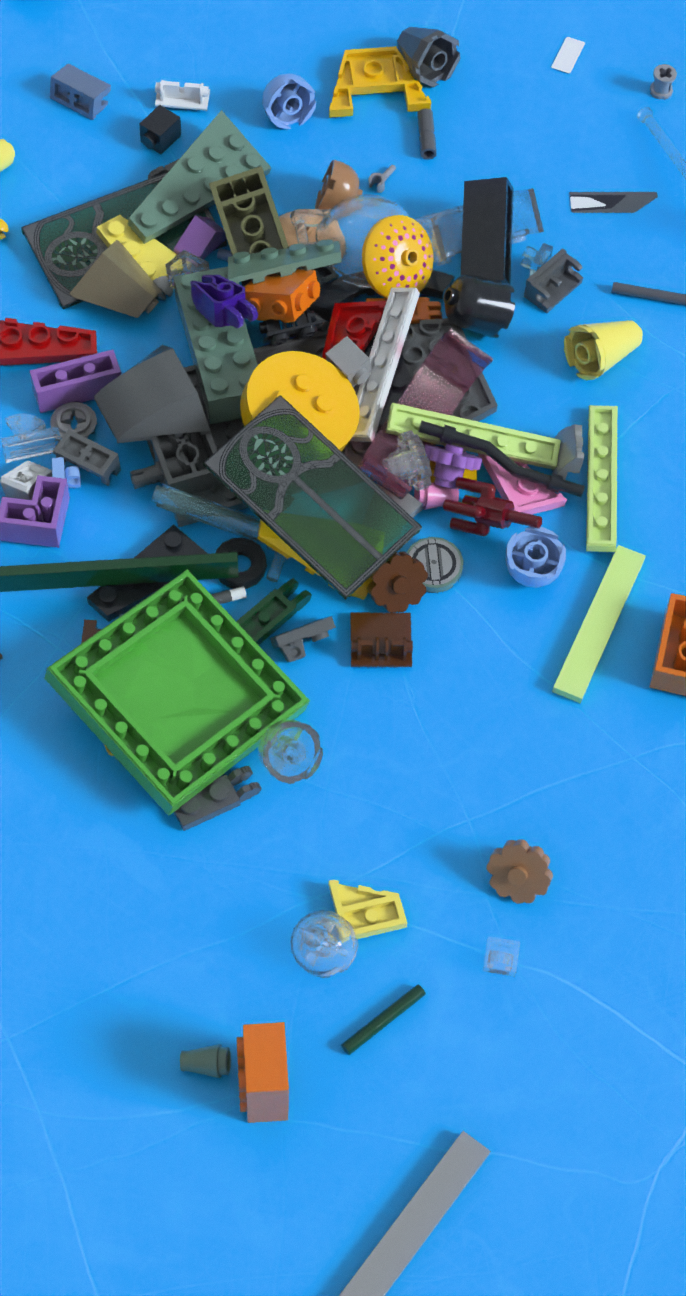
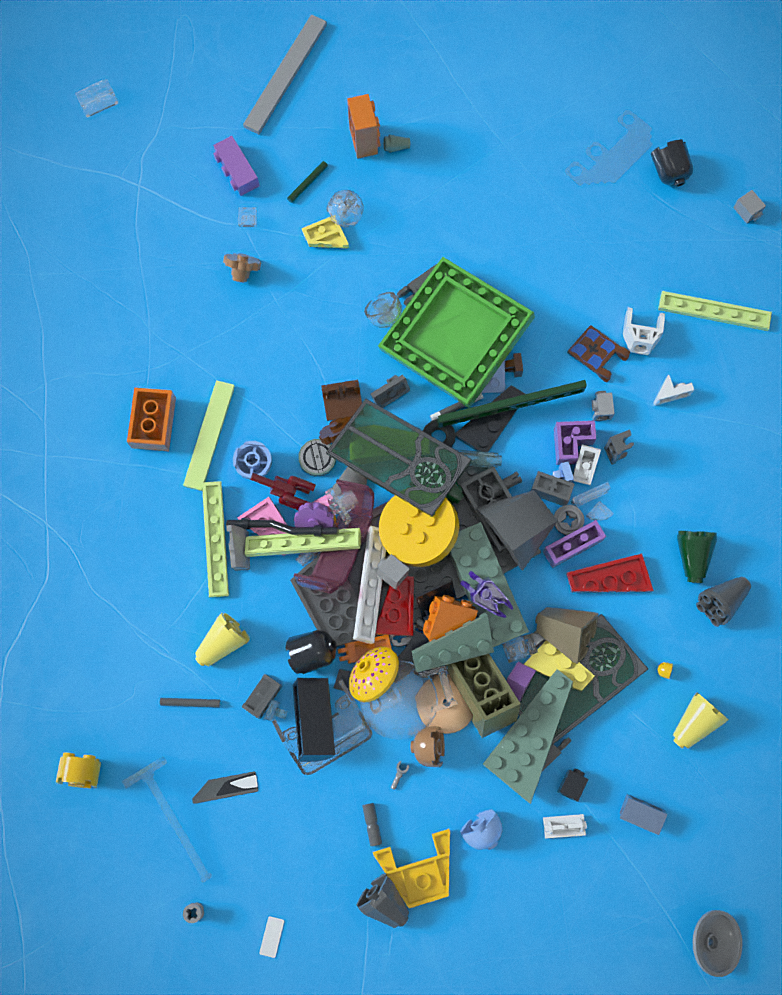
camera: 175 degrees right, 15 degrees up
(273, 611) = (414, 400): dark green hinge -> none
(513, 1064) = (235, 166): none -> medium lavender brick

